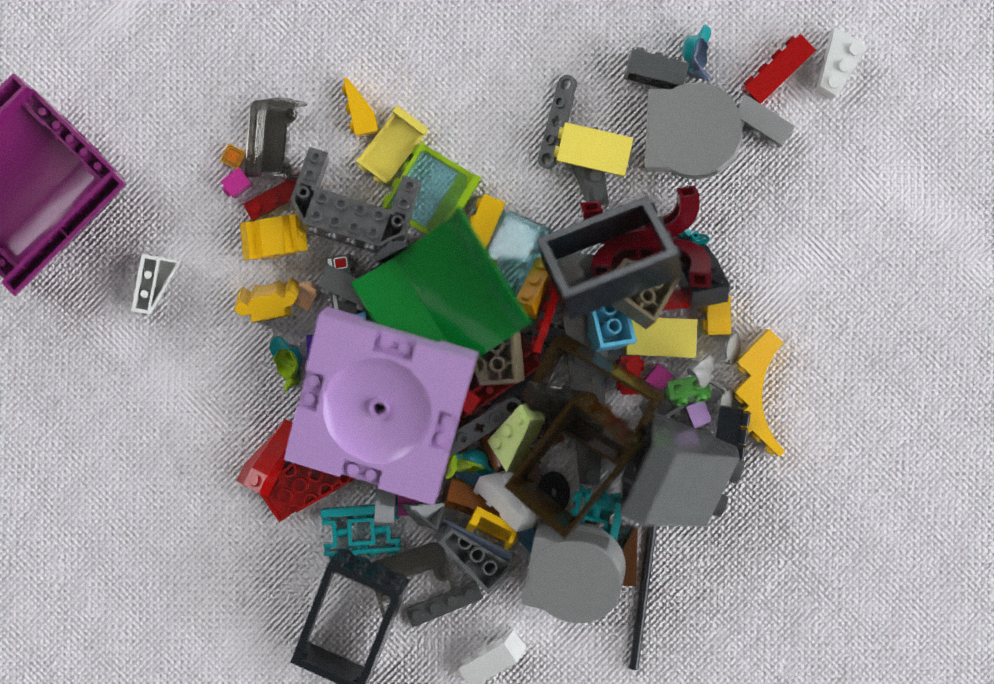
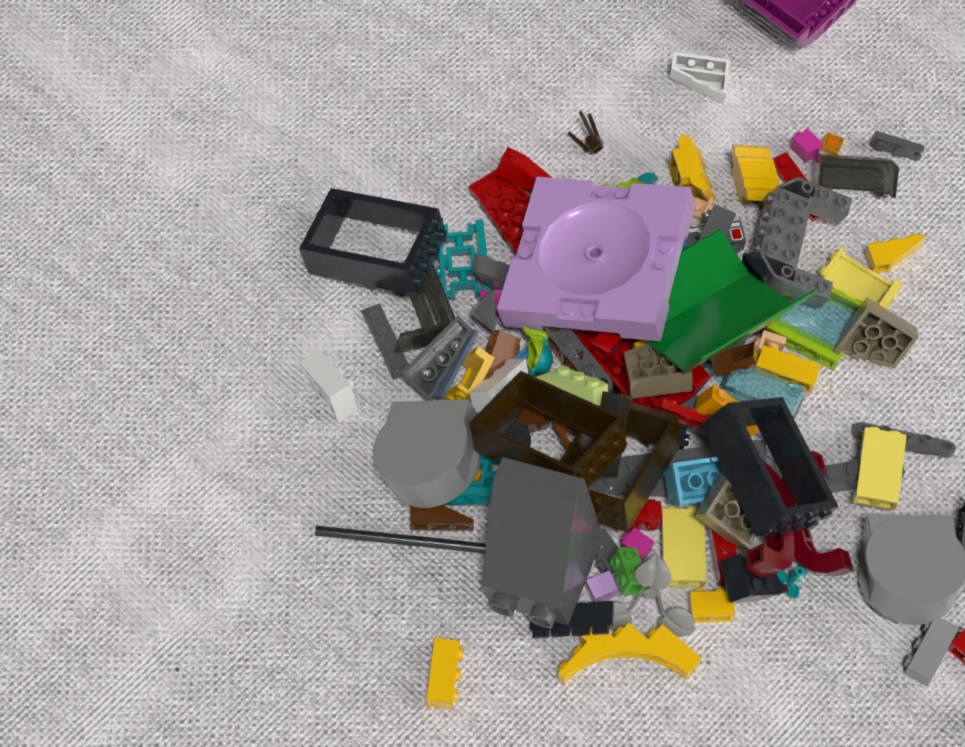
camera: 85 degrees right, 25 degrees down
(230, 396) = (593, 141): none -> dark brown plant
(240, 90) = (897, 146): none -> dark grey hinge
(451, 136) = (876, 335): none -> dark tan wedge
(774, 556) = (444, 673): none -> yellow brick

